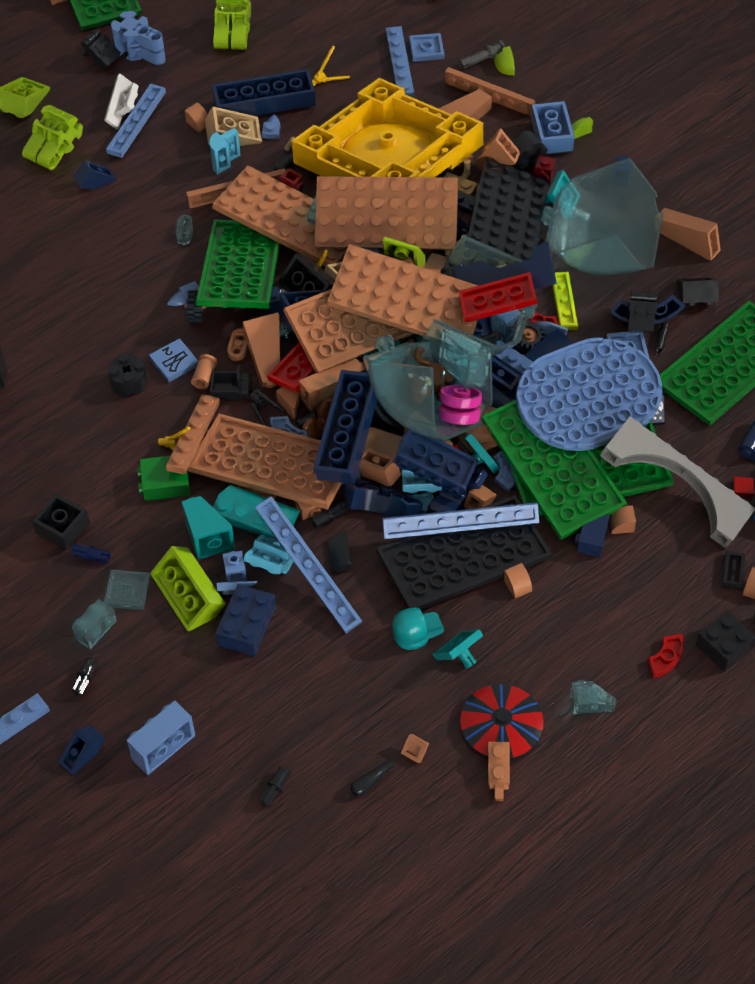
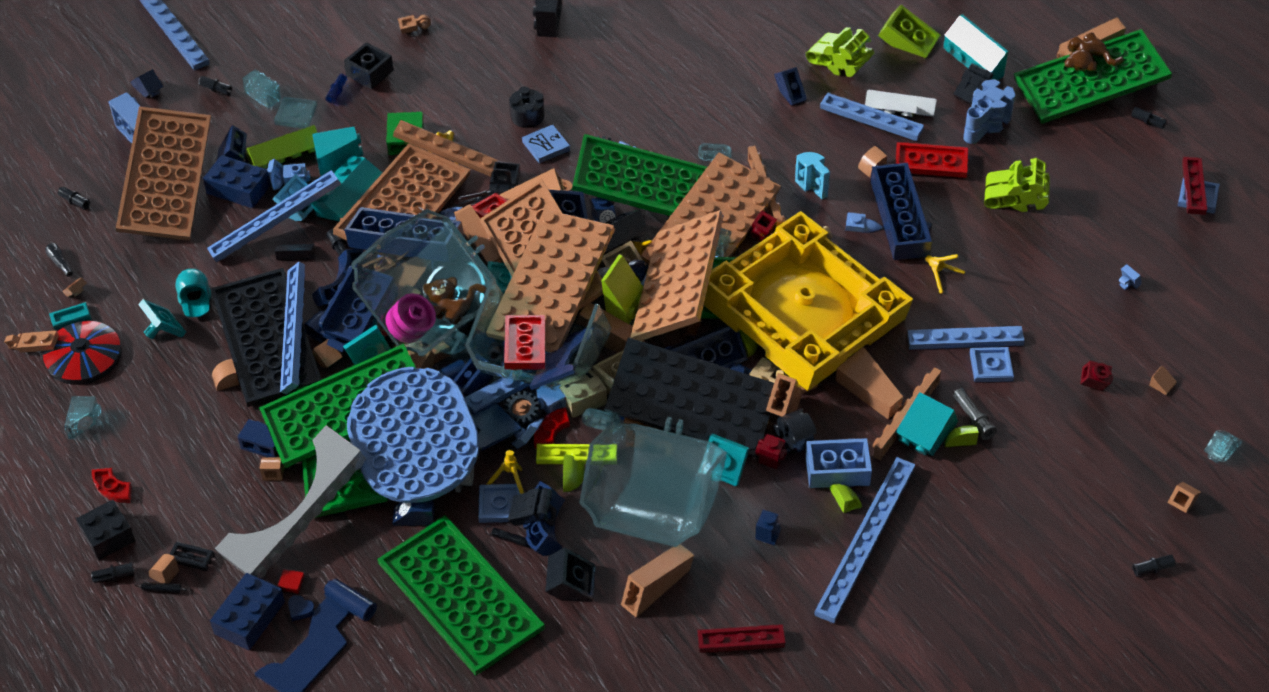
camera: 95 degrees right, 5 degrees down
(52, 46) = (974, 46): none -> slope
(192, 80) = (933, 159): none -> red plate
(197, 630) = (233, 144): none -> dark blue slope
(203, 371) = (526, 160): nougat piece -> none
(223, 120) = (853, 187): tan slope -> none
(249, 681) = (163, 173): none -> nougat plate
(452, 748) = (70, 315): none -> teal tile
(464, 359) = (449, 309): clear light blue slope -> none
(506, 73) = (926, 424): none -> teal slope
(587, 301) = (572, 473): none -> lime brick
(600, 329) = (509, 465): none -> yellow plant
(620, 115) = (864, 540): none -> medium blue plate
(729, 183) = (741, 638): none -> dark red plate

